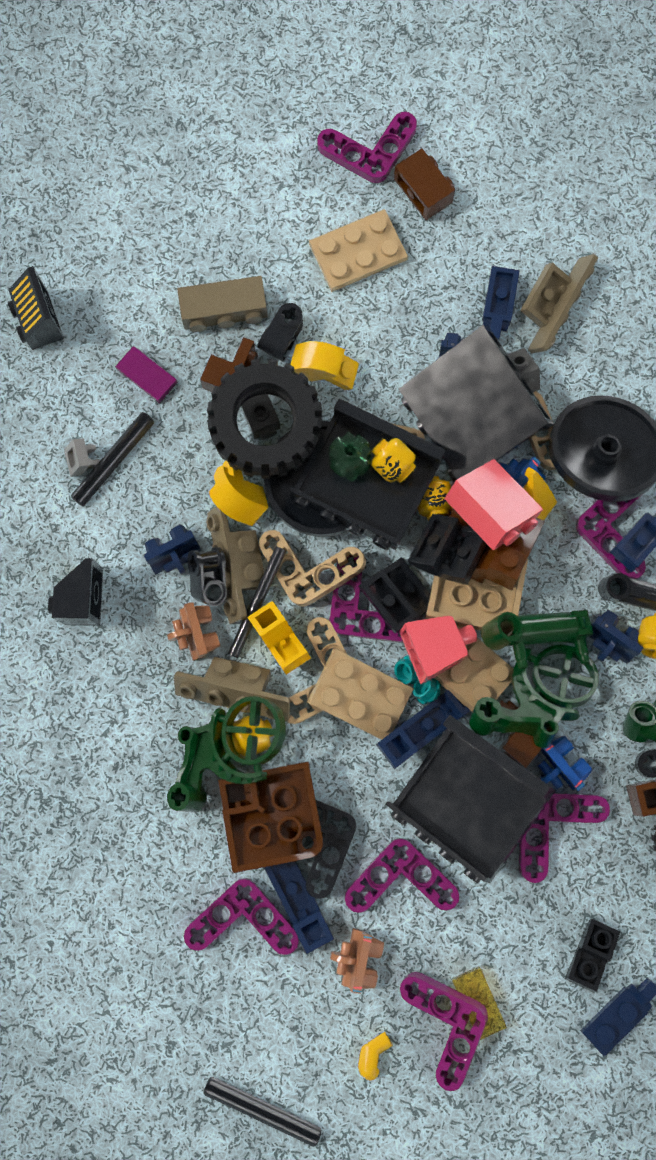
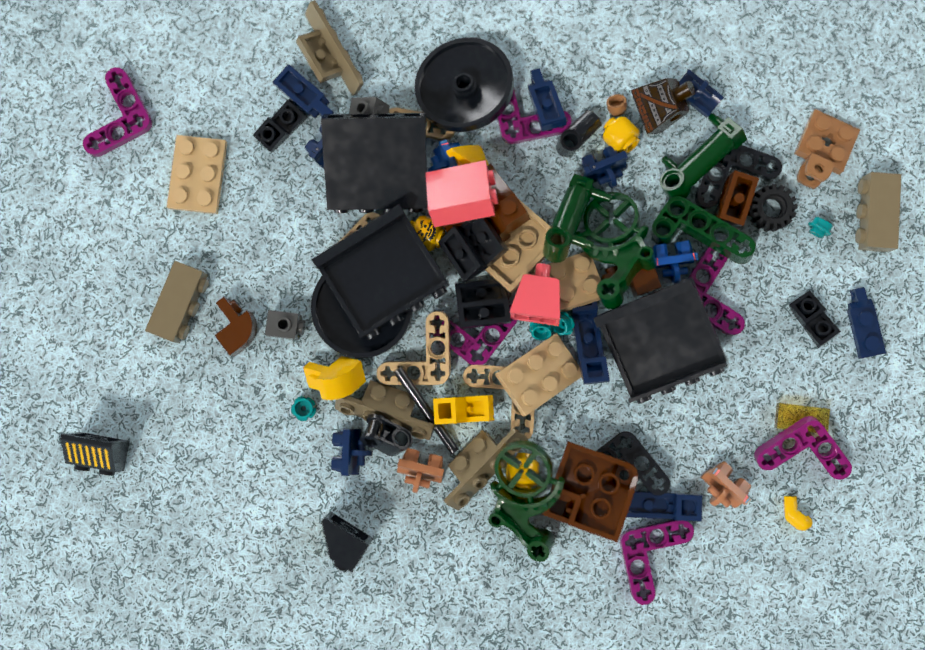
camera: 60 degrees left, 5 degrees up
(77, 457) = (232, 482): light grey tile -> none
(112, 459) = (250, 456): black axle -> none
(146, 374) = (197, 393): magenta tile -> none
(186, 475) = (297, 411): none -> teal plate
(261, 380) = (258, 317): black tyre -> none
(262, 1111) = (789, 615): black axle -> none
(279, 335) = (230, 273): black piece -> none
(325, 362) = (272, 253): yellow brick -> none
(352, 465) = (367, 283): clear green brick -> none
(393, 460) = (383, 247): yellow head -> none
(407, 868) = (680, 414): magenta beam -> none
(424, 183) = (175, 92): reddish brown brick -> none
(454, 300) = (280, 126): none -> black slope
(608, 781) = (705, 234): none -> dark green beam

